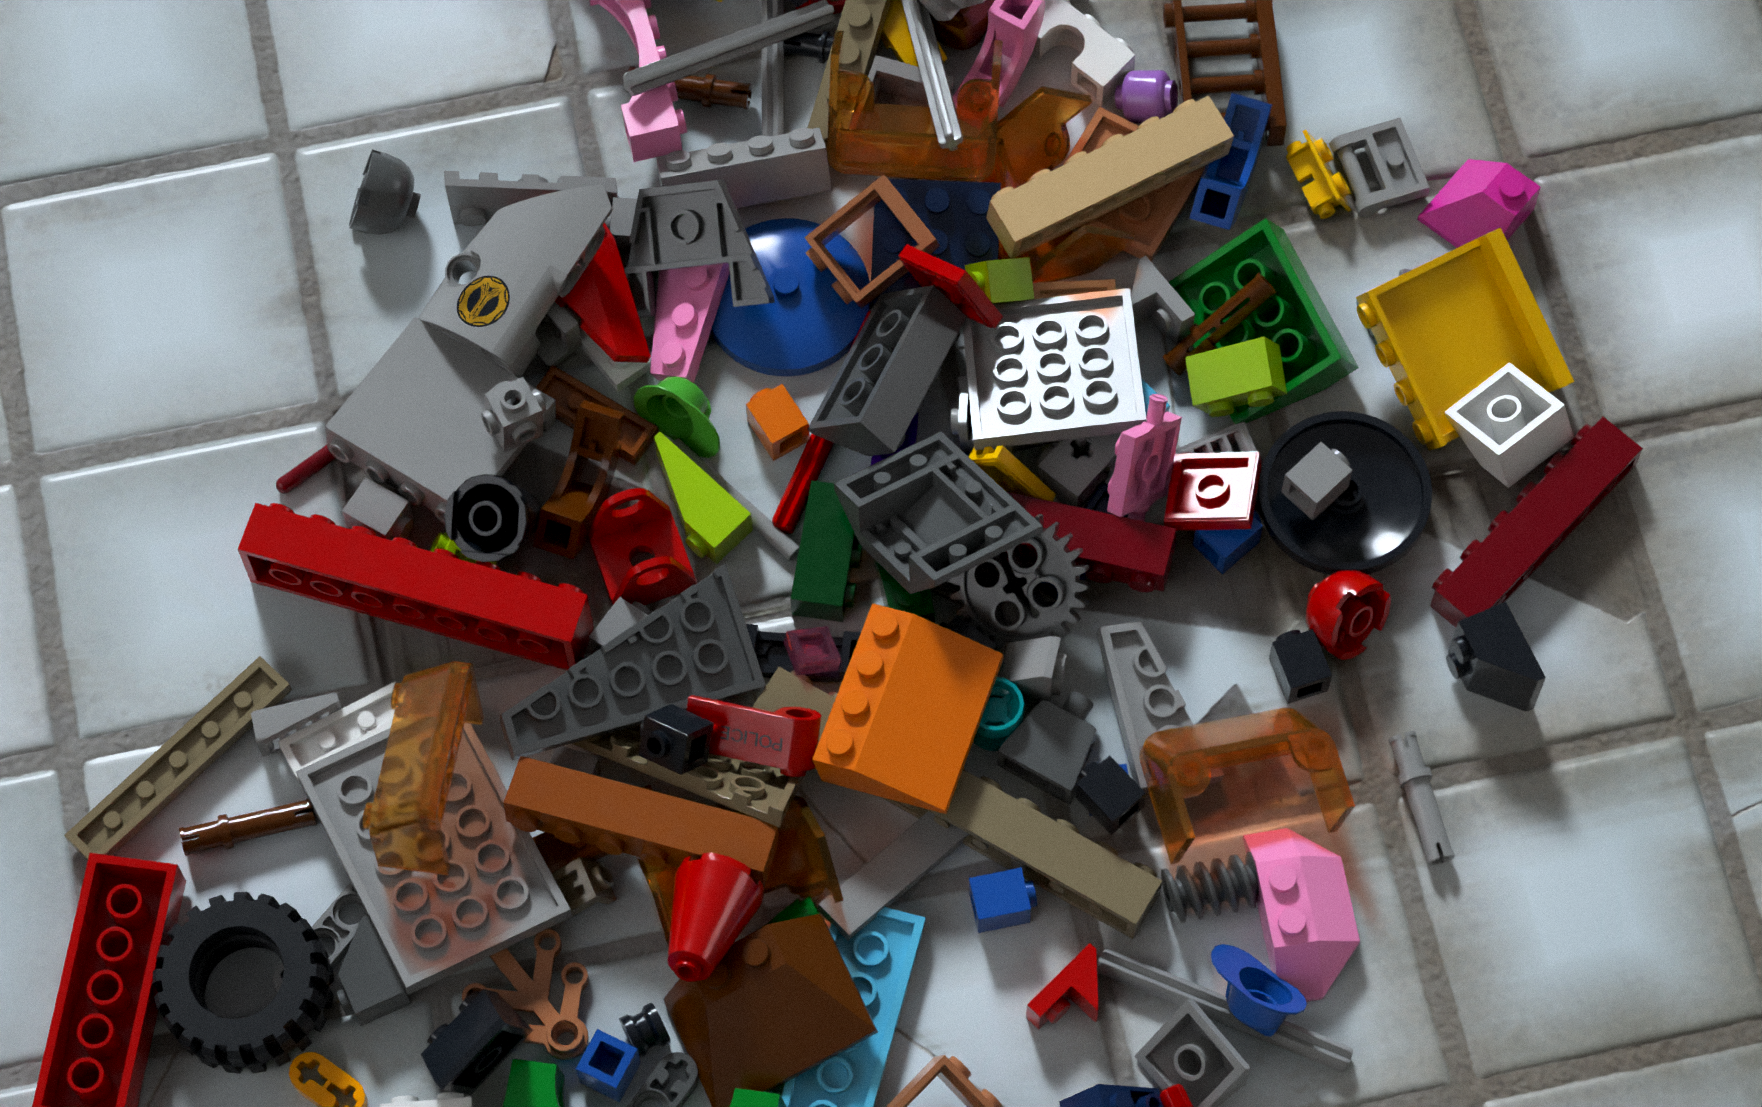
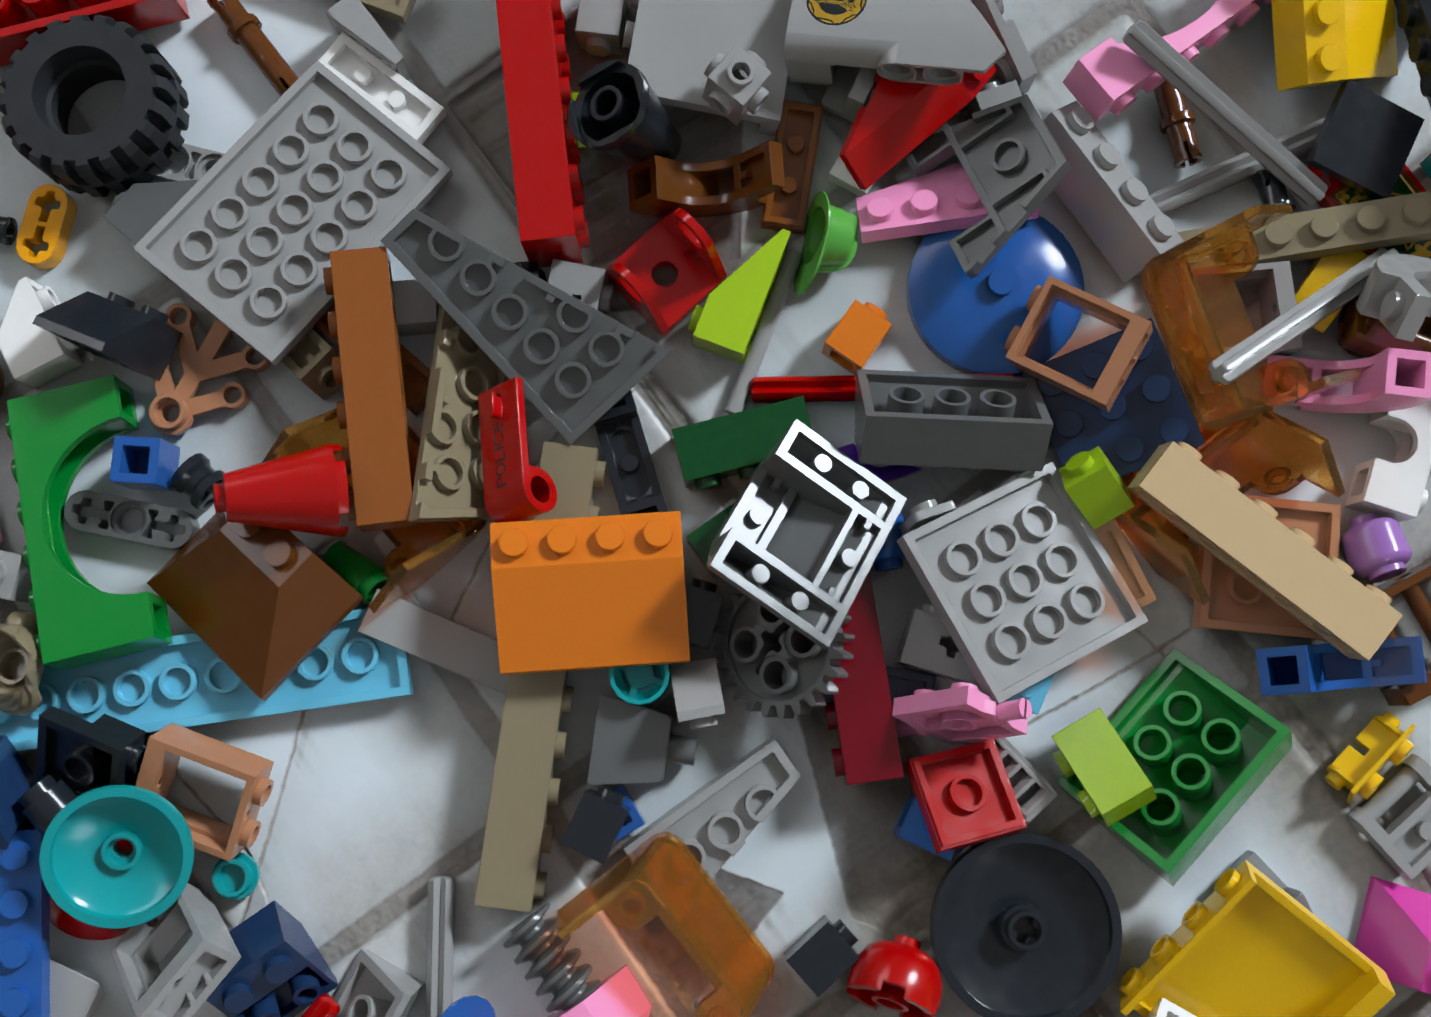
camera: 65 degrees right, 15 degrees up
(420, 766) = (330, 153): clear orange windscreen -> none
(675, 739) = (465, 383): black brick -> none
(812, 650) = (628, 472): clear pink plate -> none
(953, 283) = (1060, 441): red tile -> none
(1001, 899) = (458, 759): blue brick -> none
(1010, 472) = (890, 588): yellow tile -> none
(1074, 982) = (403, 863): red slope -> none
(1157, 299) = (1155, 649): light grey slope -> none
(1257, 290) = (1153, 727): reddish brown pin -> none
(1317, 480) = (1020, 903): light grey brick -> none

